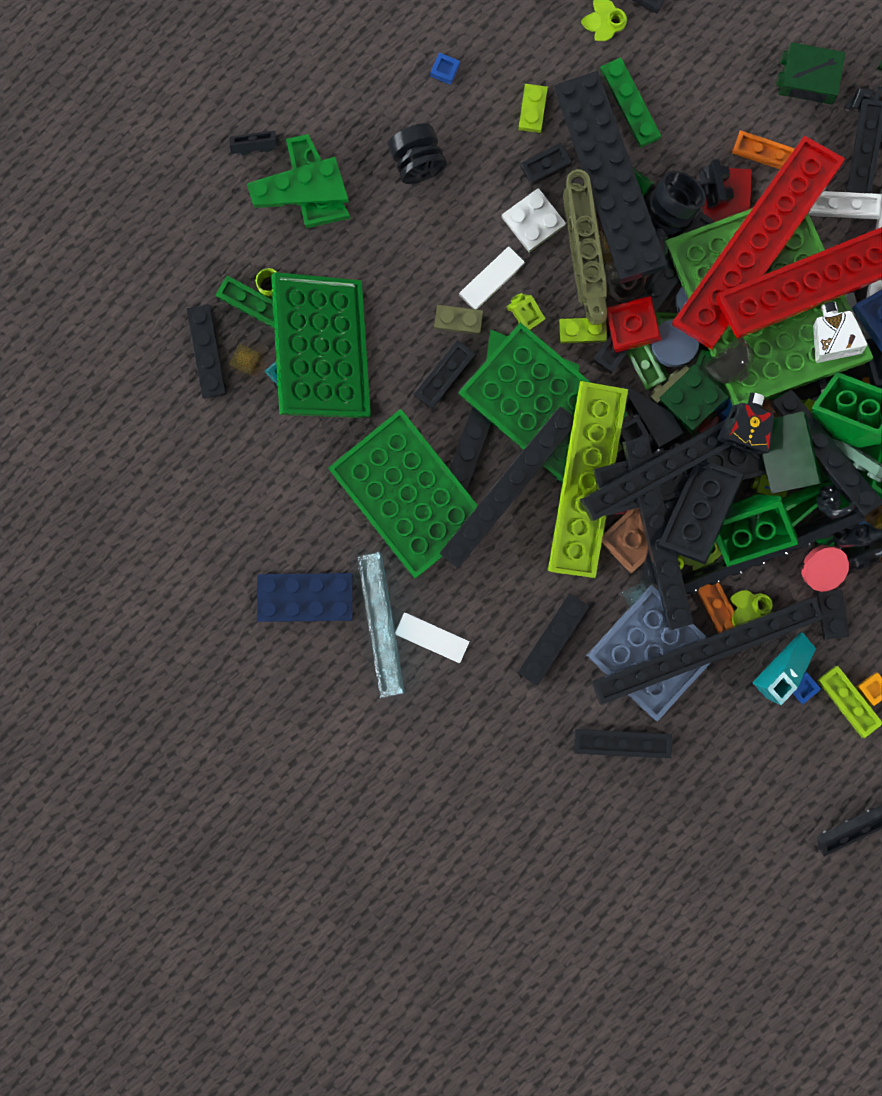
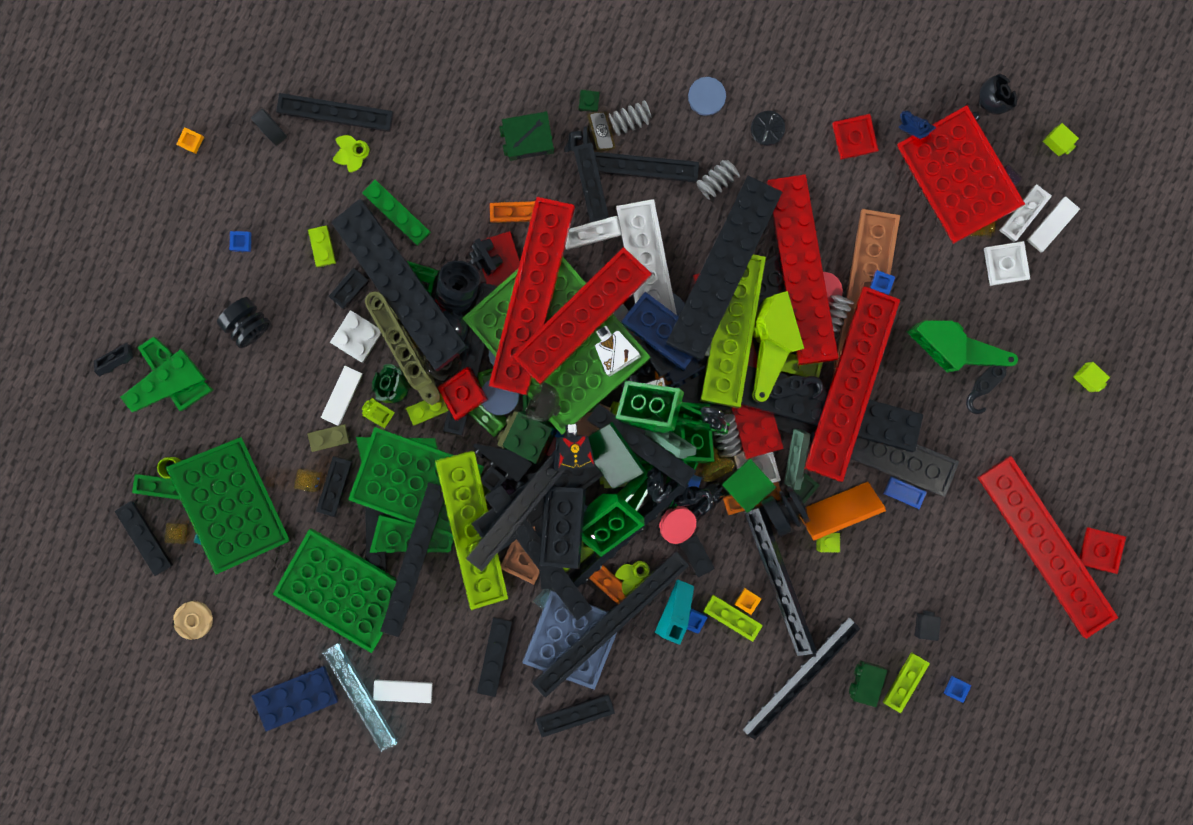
camera: 25 degrees left, 5 degrees up
(228, 471) = (198, 617): none -> tan tile
(418, 355) = (307, 480): none -> clear yellow brick
(495, 454) = (394, 536): none -> green wing
(556, 283) = (390, 384): none -> dark green cylinder

